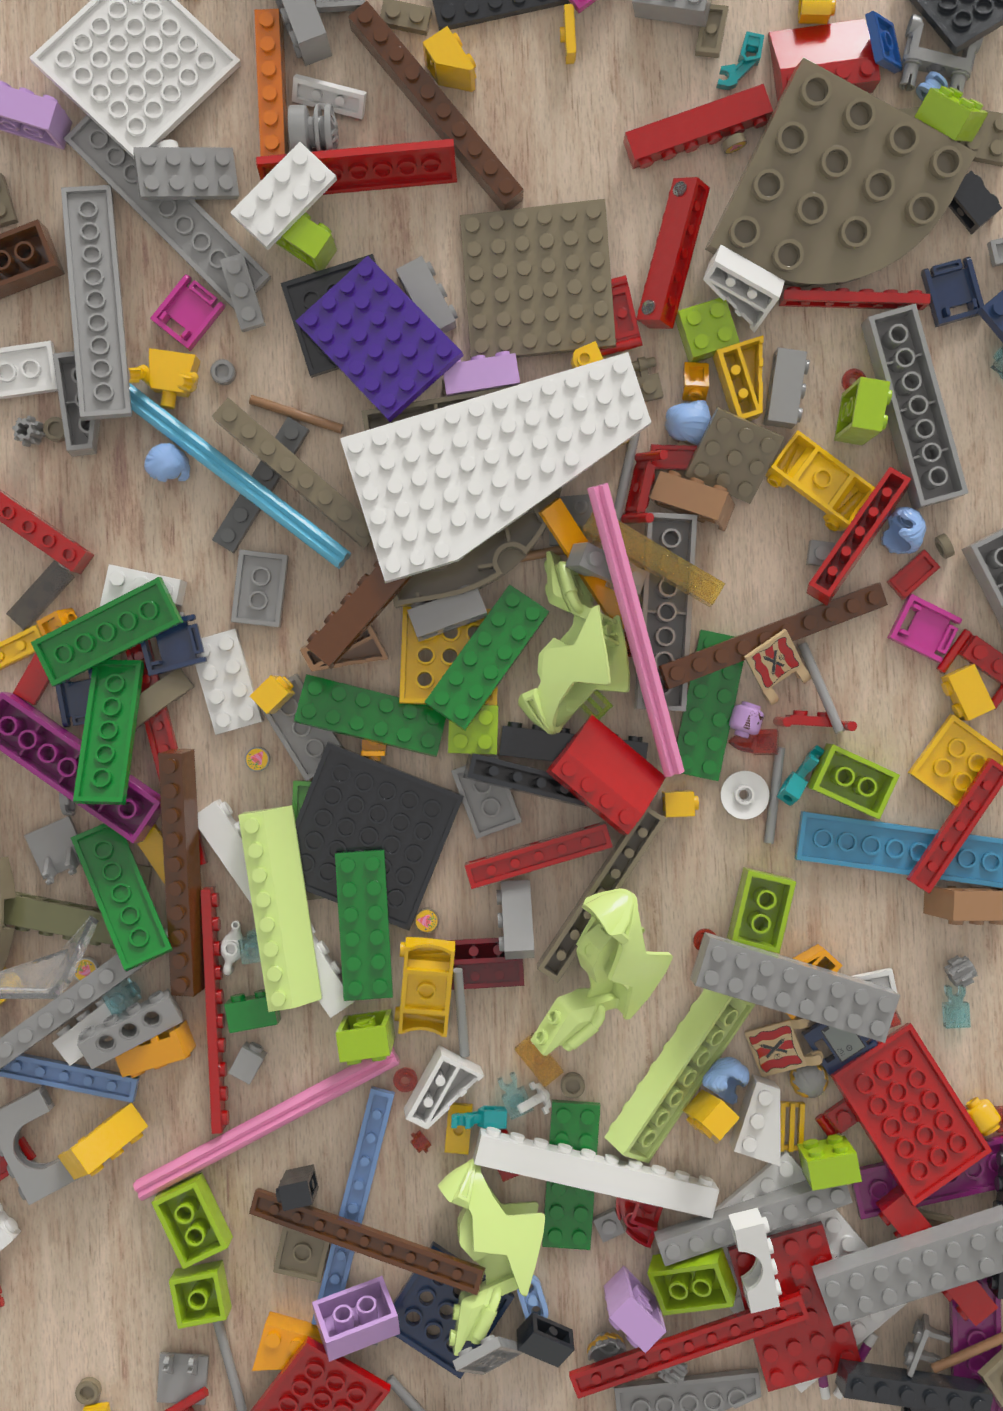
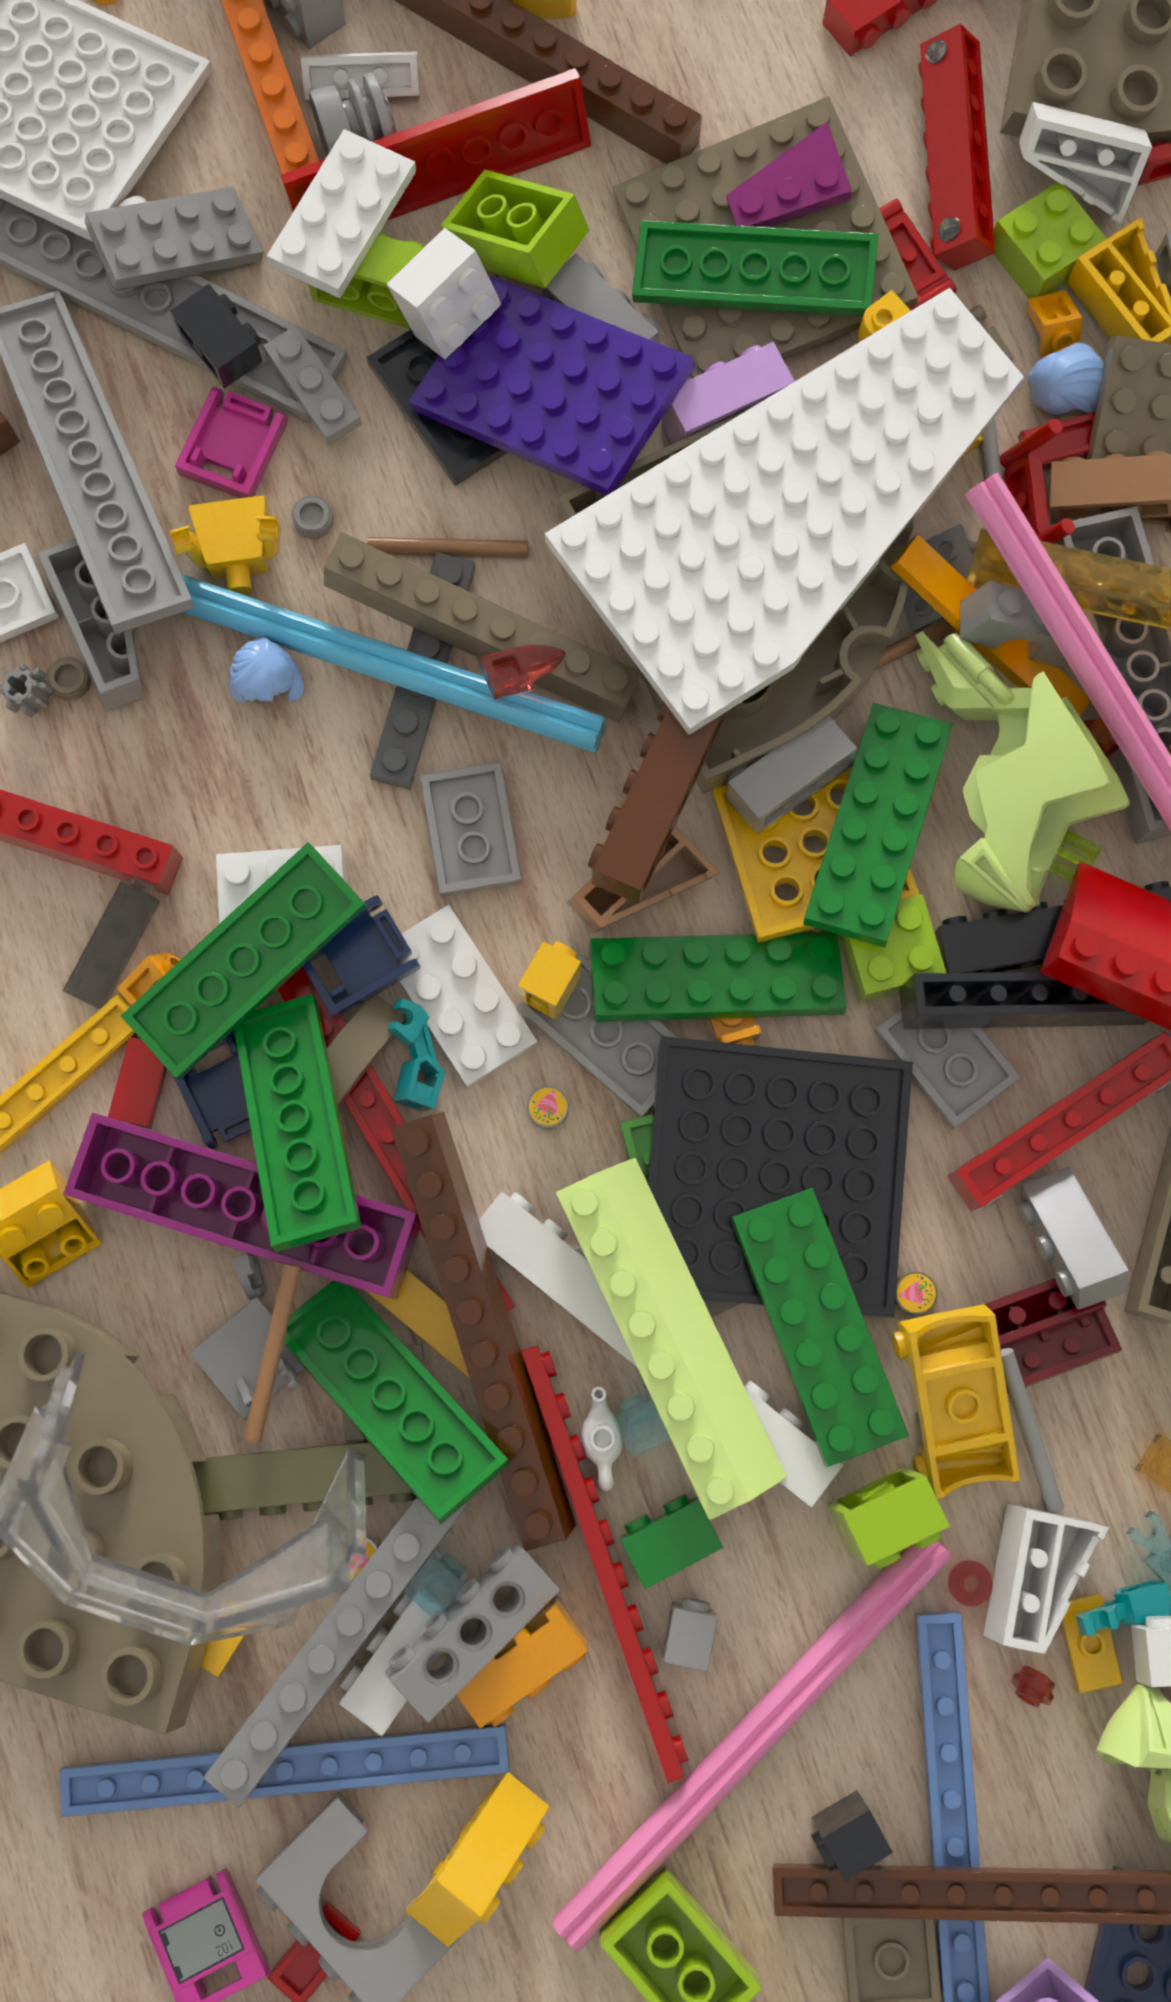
camera: 15 degrees left, 10 degrees down
(63, 853) = (272, 1353): none -> medium nougat bar
(193, 247) = (217, 336): none -> black brick
(194, 698) = (418, 1038): none -> teal piece
(306, 509) = (518, 668): none -> clear red plate
(329, 266) = (444, 293): none -> white brick
(389, 230) = (518, 226): none -> lime brick
(523, 298) = (755, 268): none -> green plate
(562, 252) = (793, 184): none -> magenta wing

